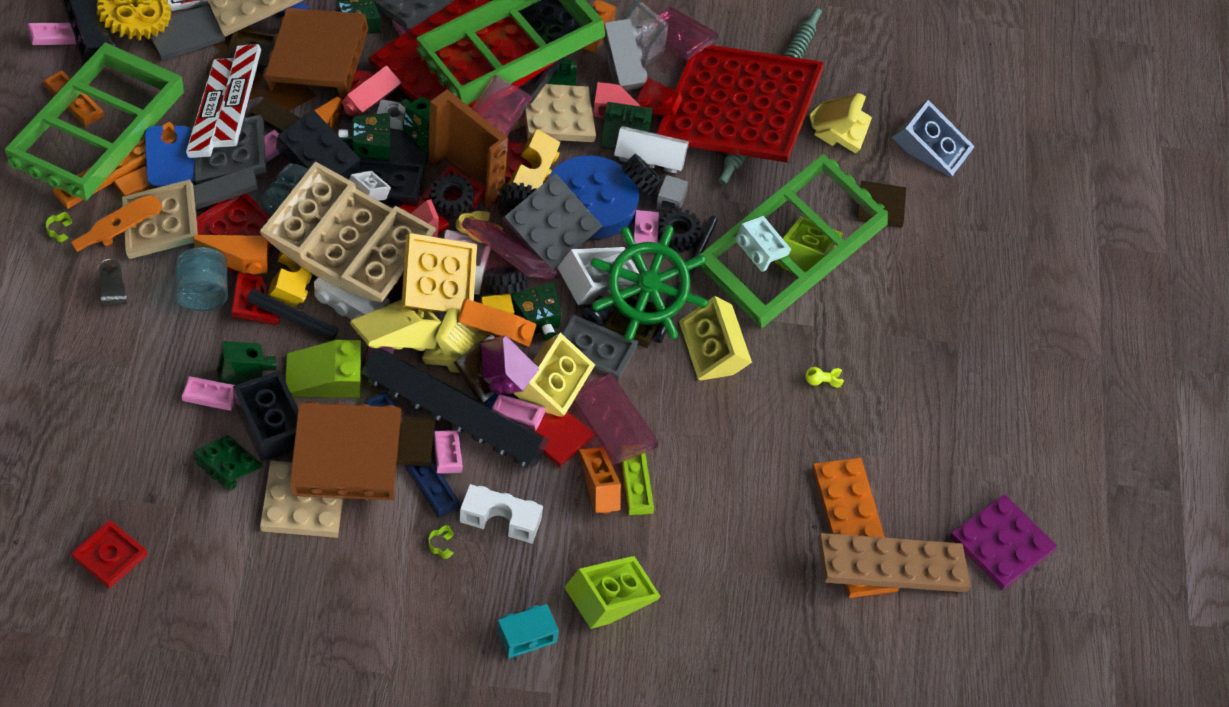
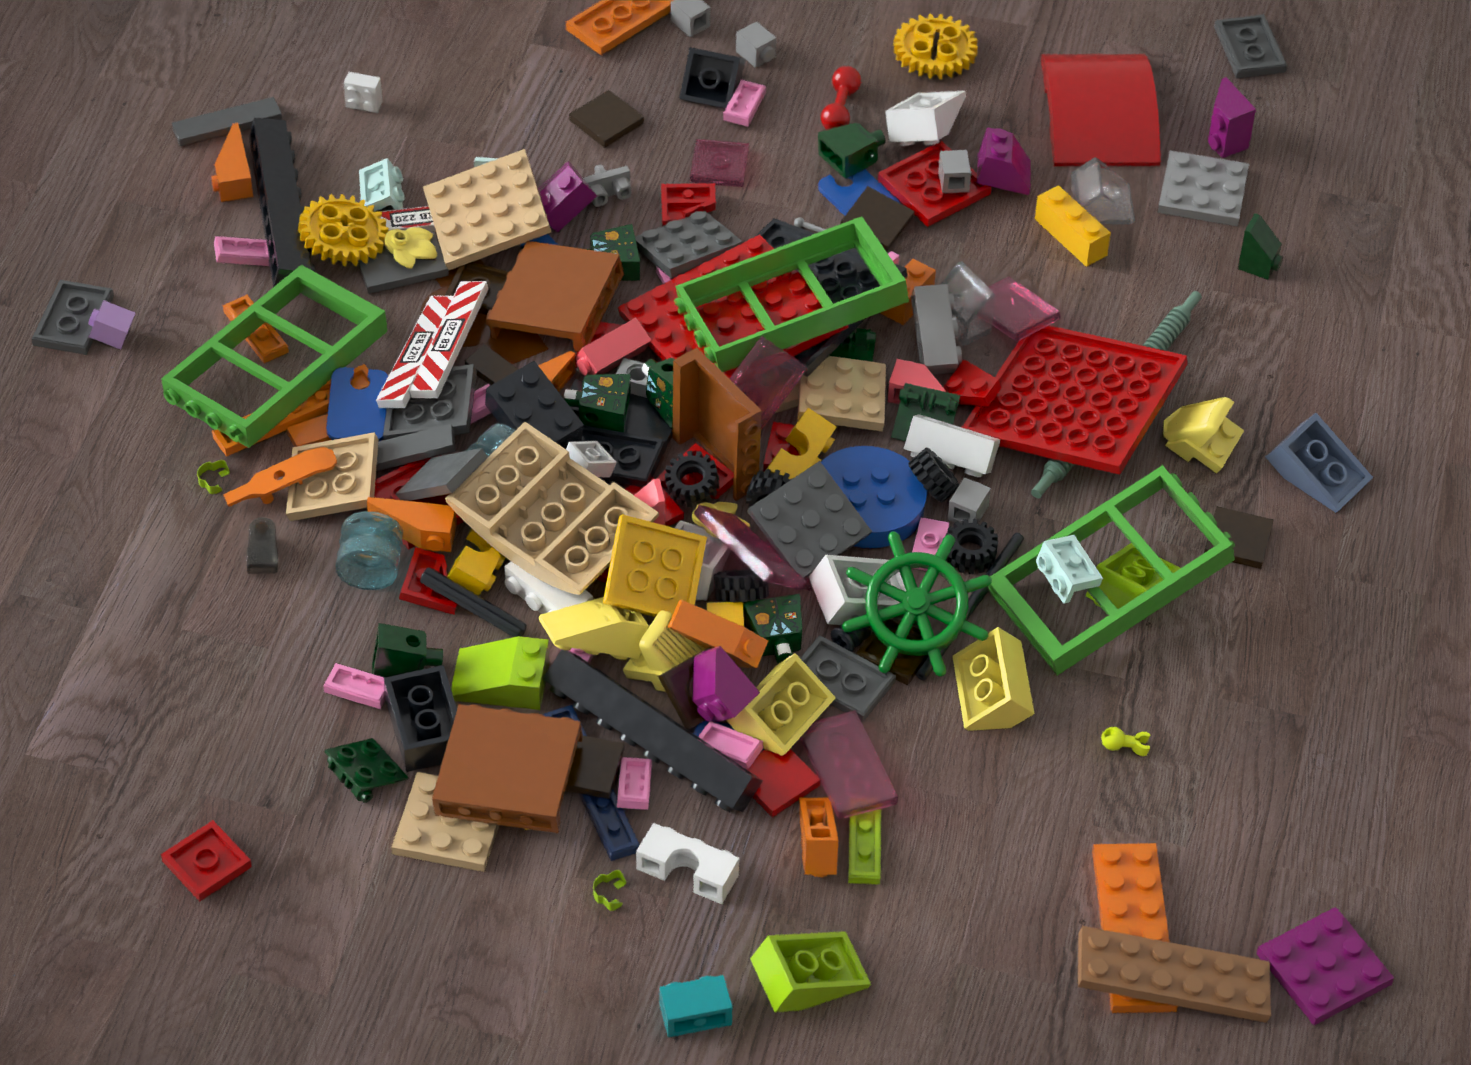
camera: 15 degrees right, 5 degrees down
(191, 18) = (410, 245): none -> light yellow plate
(252, 211) = (442, 475): none -> dark grey tile

